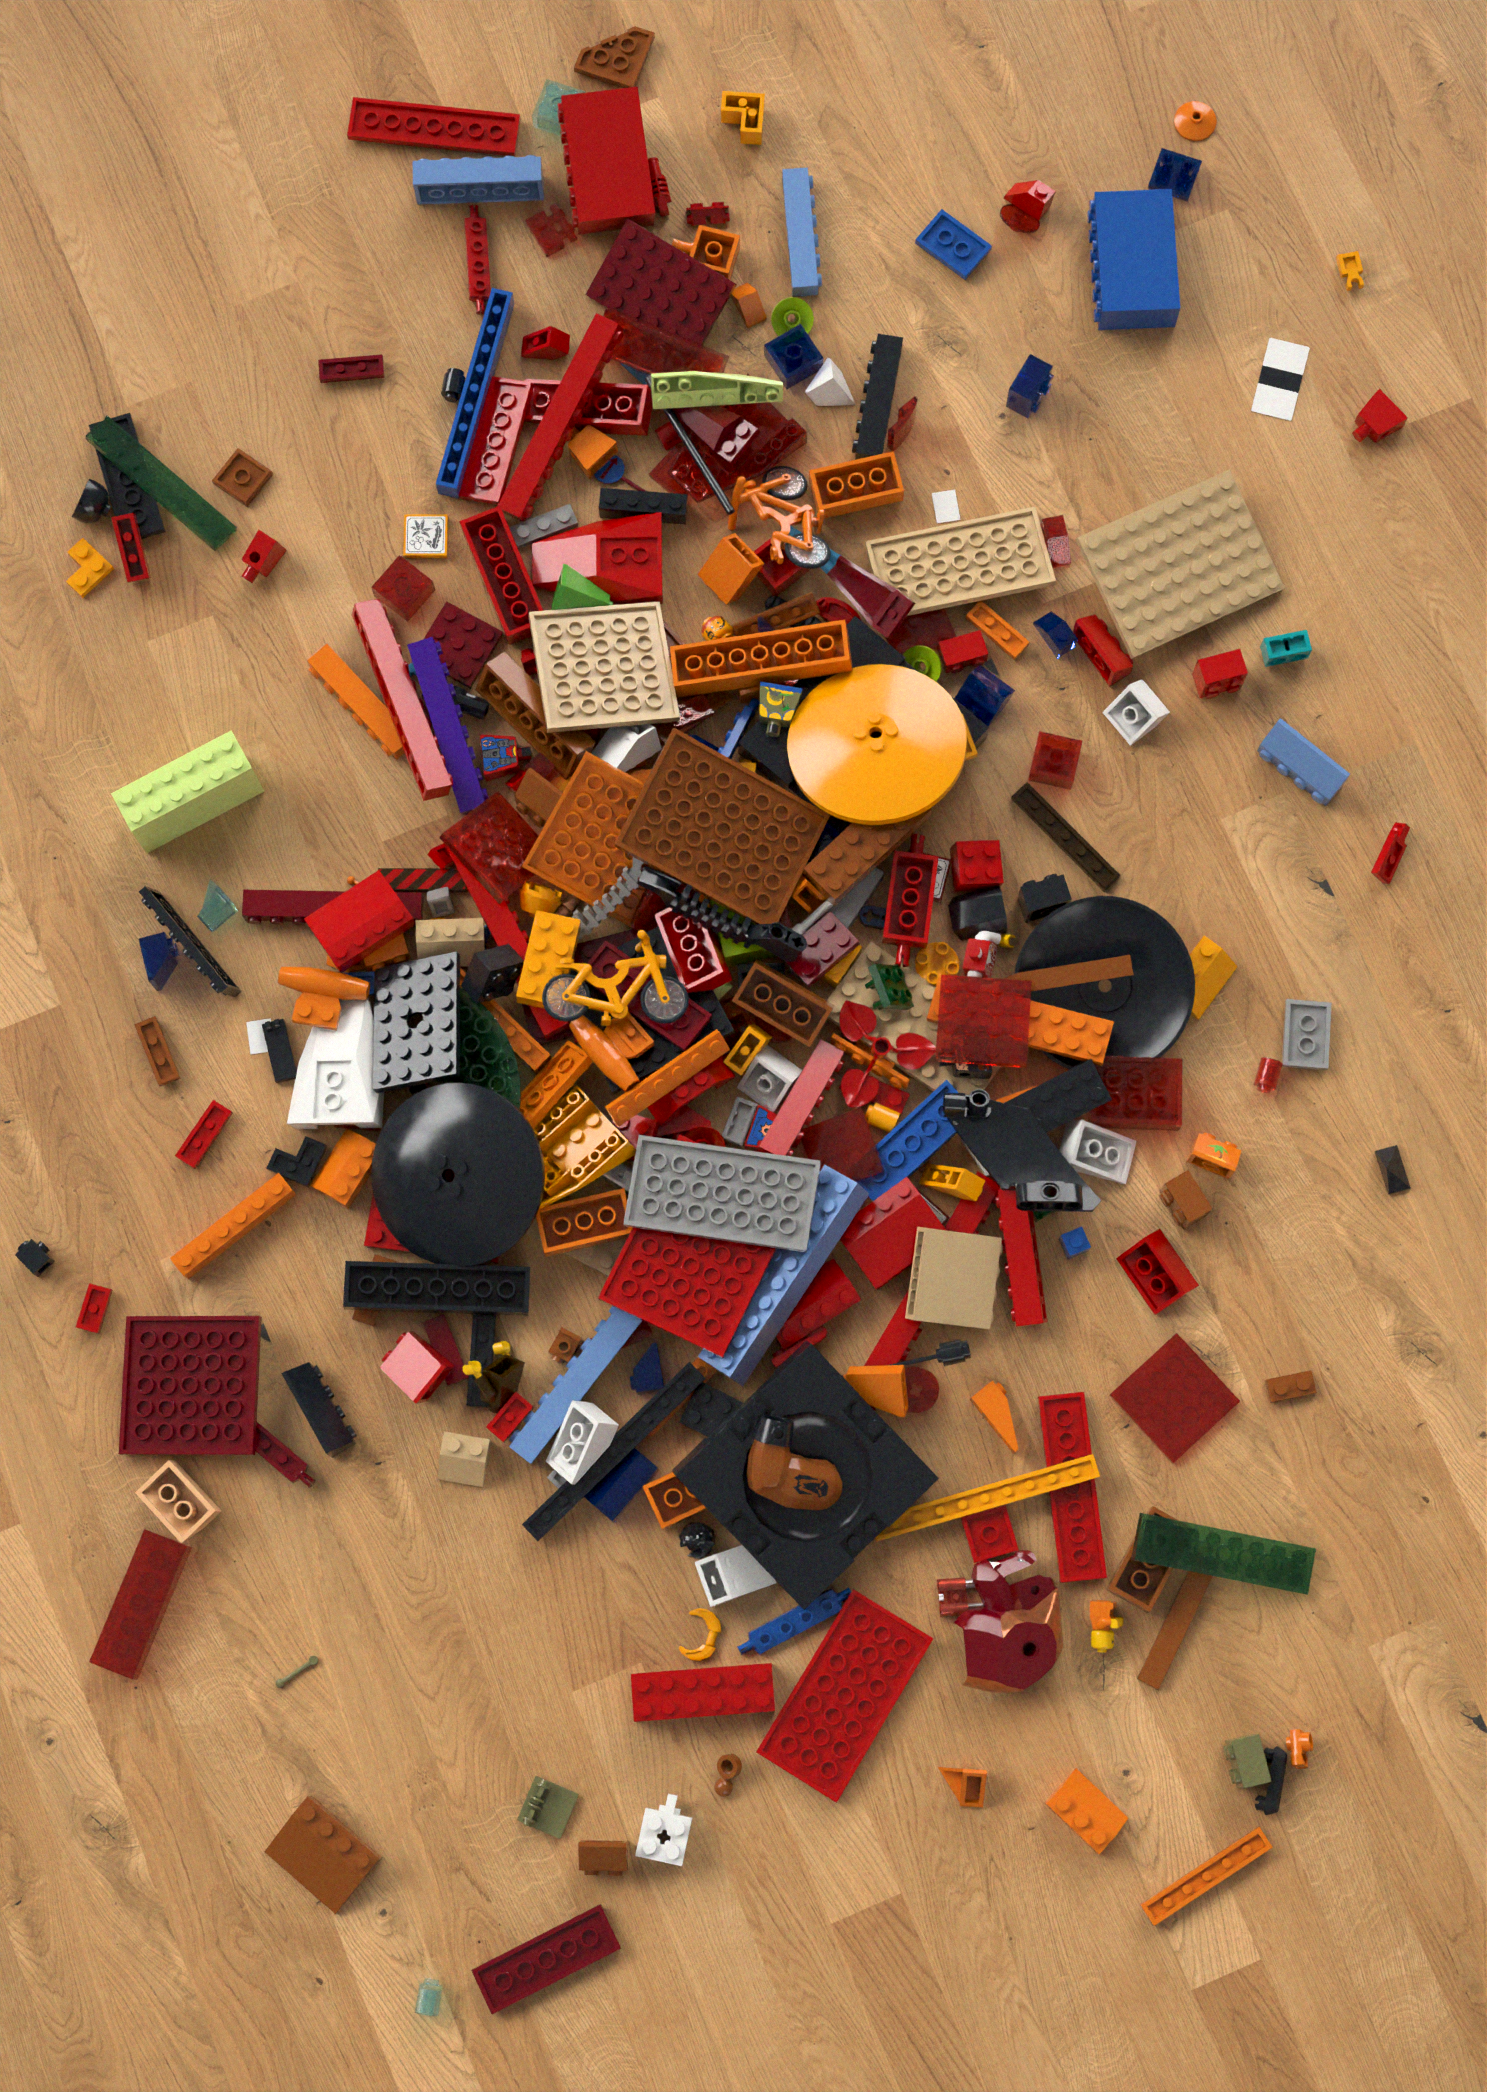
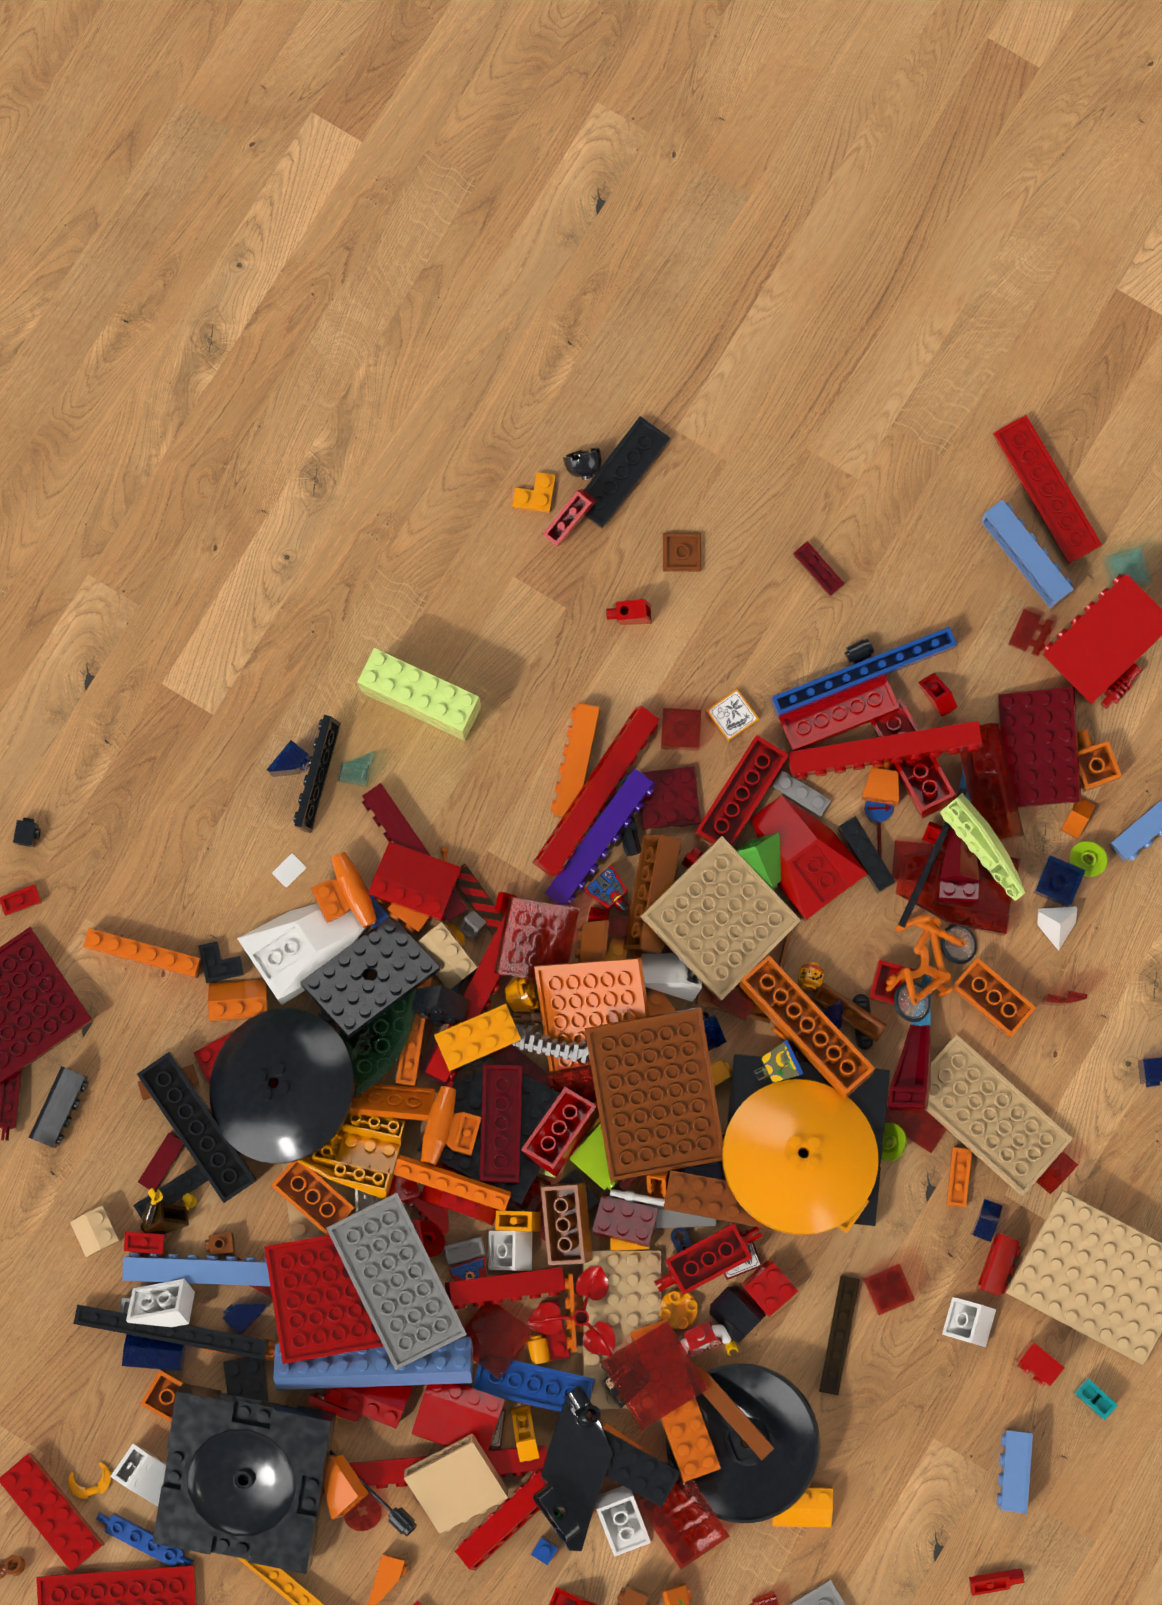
camera: 55 degrees right, 5 degrees up
(157, 1051) = (227, 808): dark orange plate -> none
(161, 483) = (633, 500): clear green plate -> none
(203, 1134) = (192, 884): red plate -> none
(279, 1050) = (287, 891): black hinge -> none
(416, 1367) = (133, 1152): slope -> none
(477, 259) = (968, 596): red plate -> none
(662, 998) = (504, 1139): piece -> none
(698, 1539) = (152, 1433): black piece -> none
(699, 213) = (1132, 741): red hinge -> none
(730, 568) = (862, 954): orange brick -> none
(741, 723) = (740, 1046): blue plate -> none
(771, 937) = (606, 1198): black piece -> none
(787, 1476) = (230, 1471): dark orange piece -> none
(835, 610) = (888, 1051): red arm -> none
(879, 396) = (1072, 966): black brick -> none
(890, 987) = (632, 1291): dark green plate -> none
(945, 506) = (1028, 1072): white sticker -> none
(963, 652) = (923, 1164): red brick -> none
(984, 695) = (899, 1203): clear blue slope -> none
(1043, 897) = (778, 1353): black brick -> none

